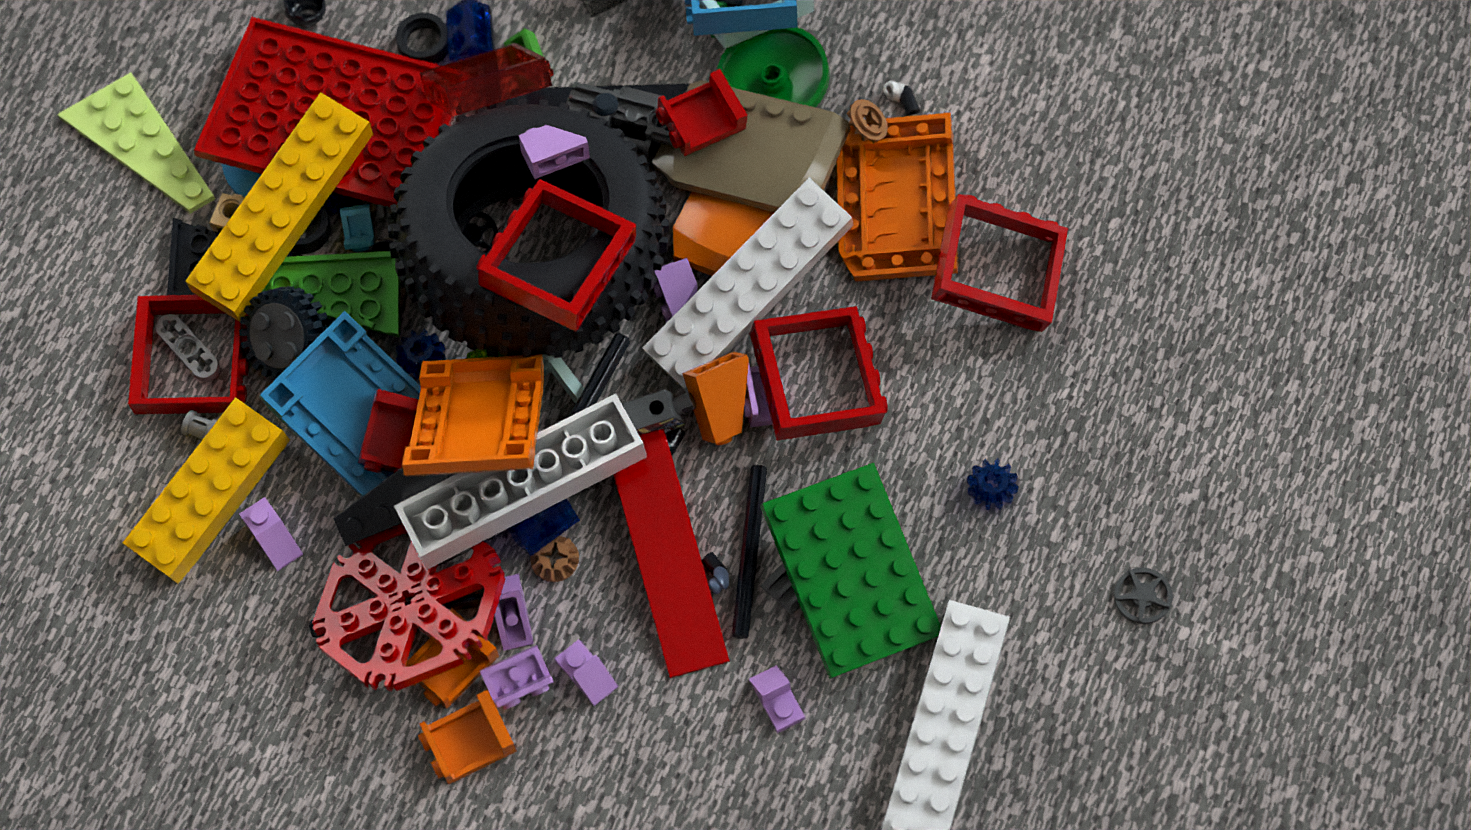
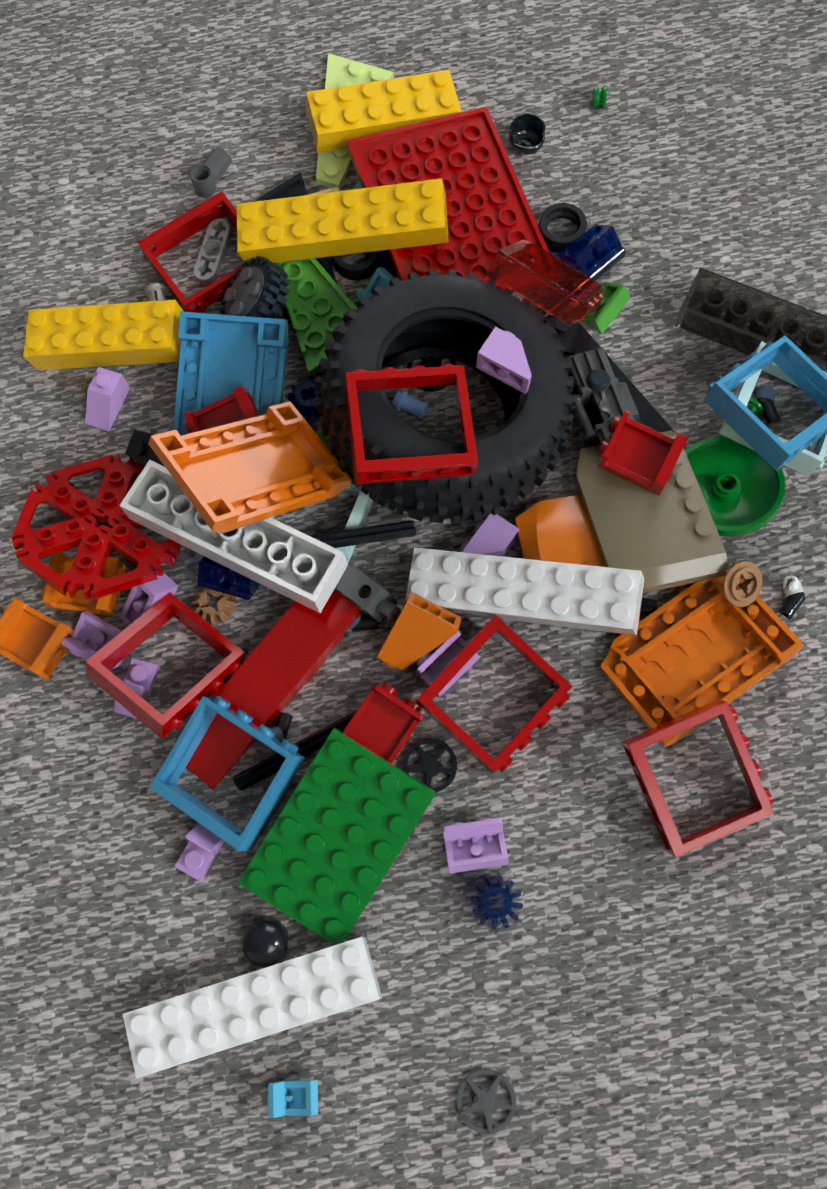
camera: 60 degrees right, 5 degrees up
(99, 297) = (207, 174): none -> dark grey piece
(174, 106) = (377, 107): none -> yellow brick
(601, 663) = (101, 663): none -> red window
(695, 584) = (183, 750): none -> dark azure window
(773, 470) = (384, 722): none -> red panel
(837, 464) = (430, 764): none -> black wheel
(896, 692) = (265, 942): none -> black hair
(933, 471) = (475, 845): none -> lavender bracket
(1042, 742) = (292, 1098): none -> medium azure bracket

